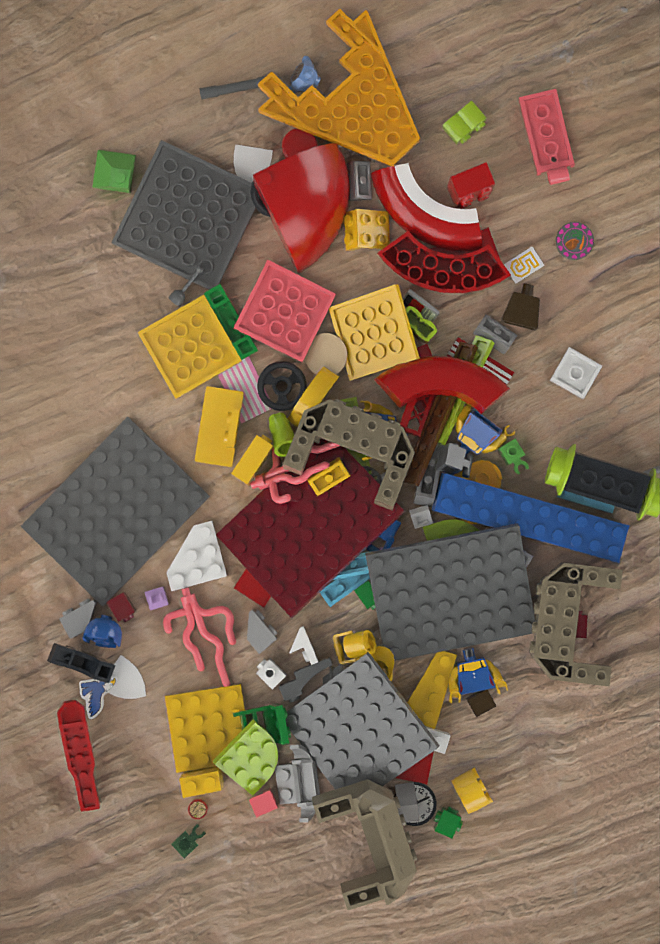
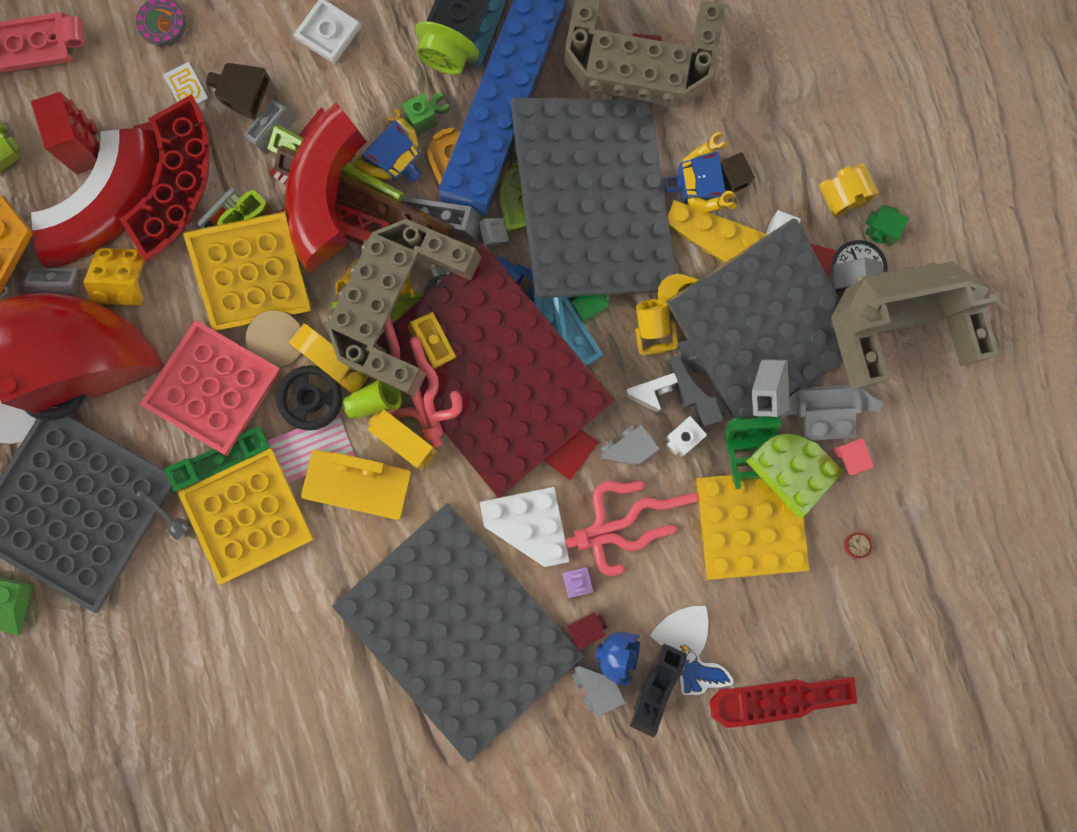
camera: 90 degrees left, 5 degrees down
(186, 842) = (901, 564): clear green plate -> none
(201, 781) = (826, 536): yellow brick -> none
(308, 735) = (771, 389): none -> light grey slope
(452, 460) = (422, 182): dark grey brick -> none

